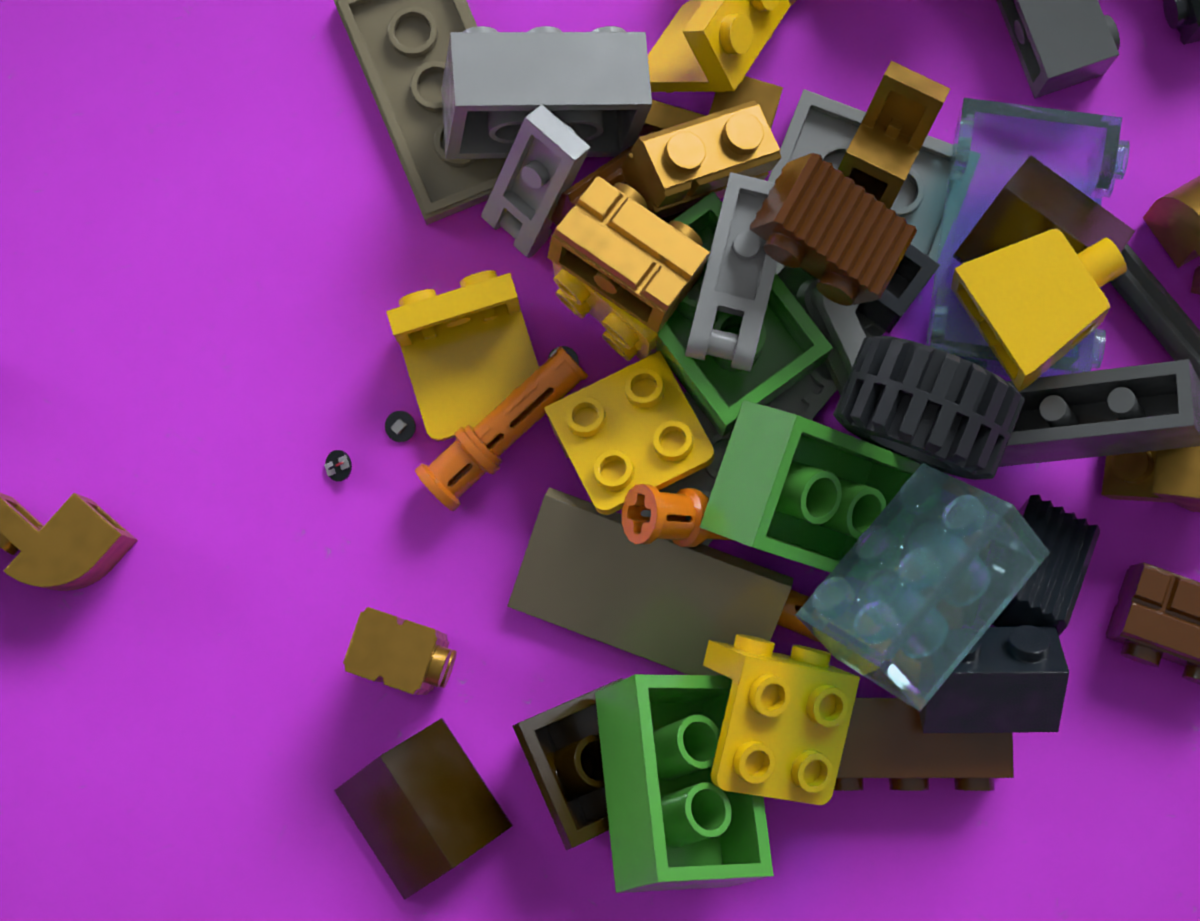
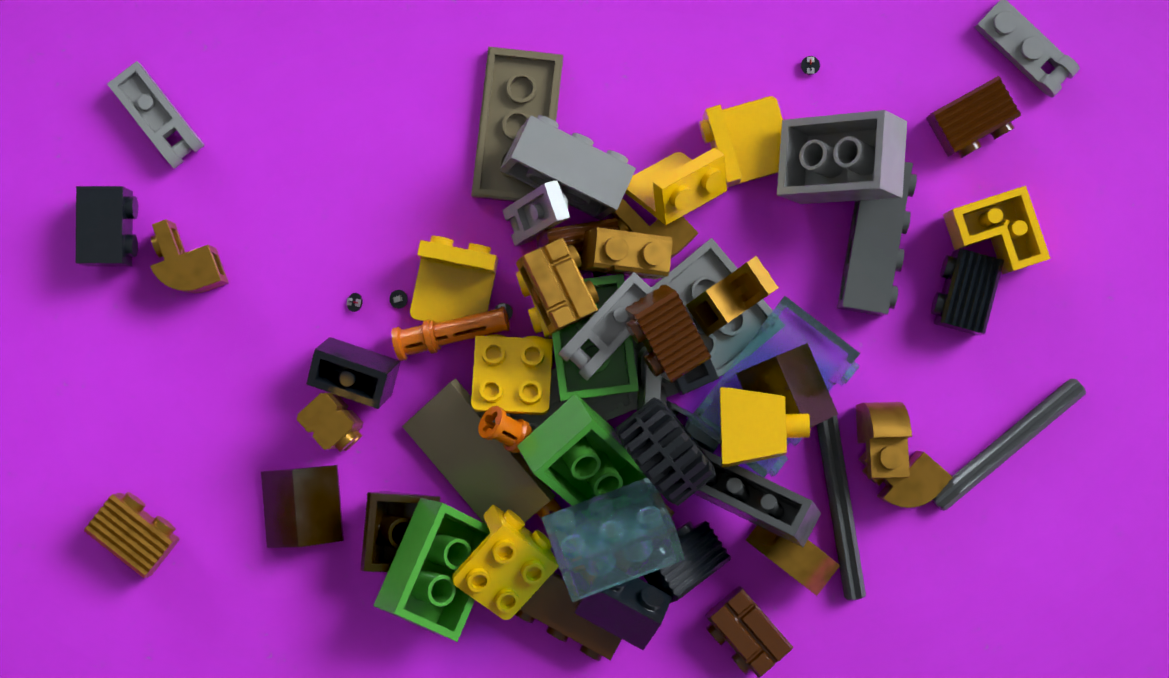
camera: 25 degrees right, 5 degrees up
(392, 563) = (353, 372): none -> black brick

